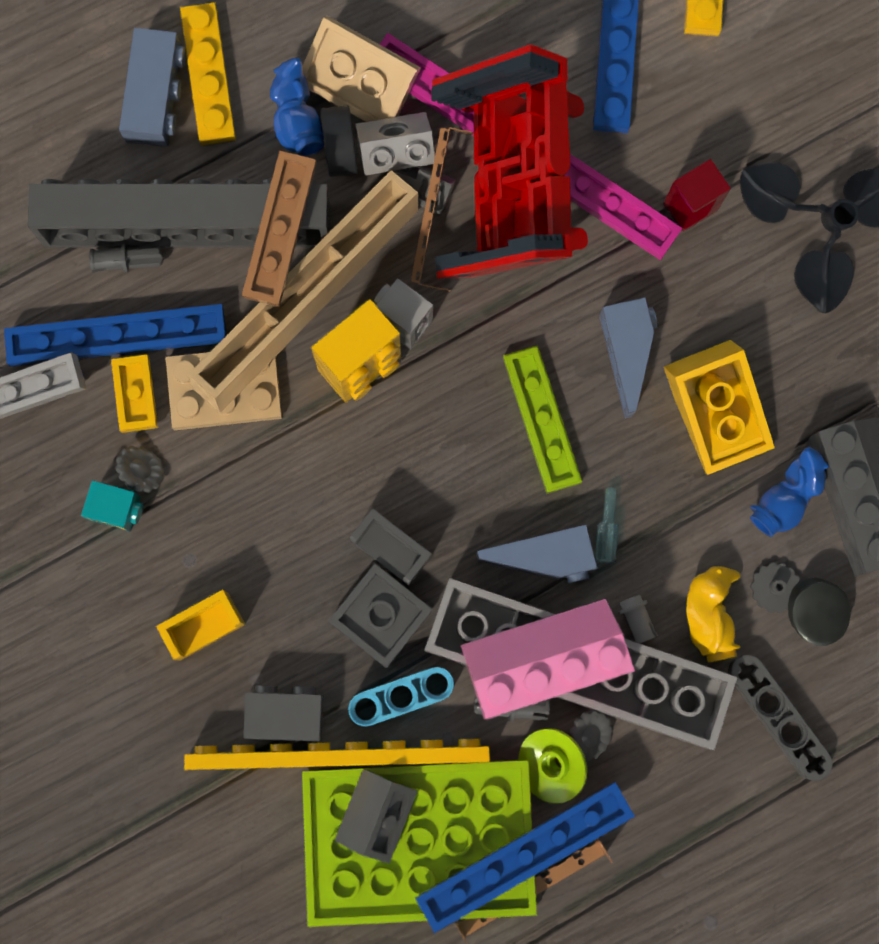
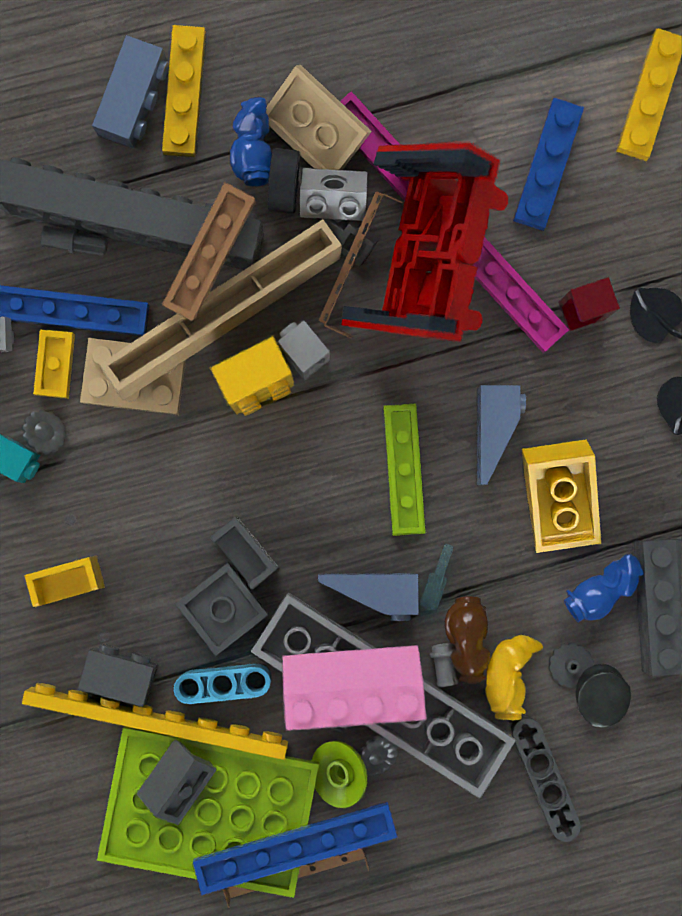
camera: 10 degrees right, 5 degrees up
(653, 573) = (466, 629): none -> reddish brown animal

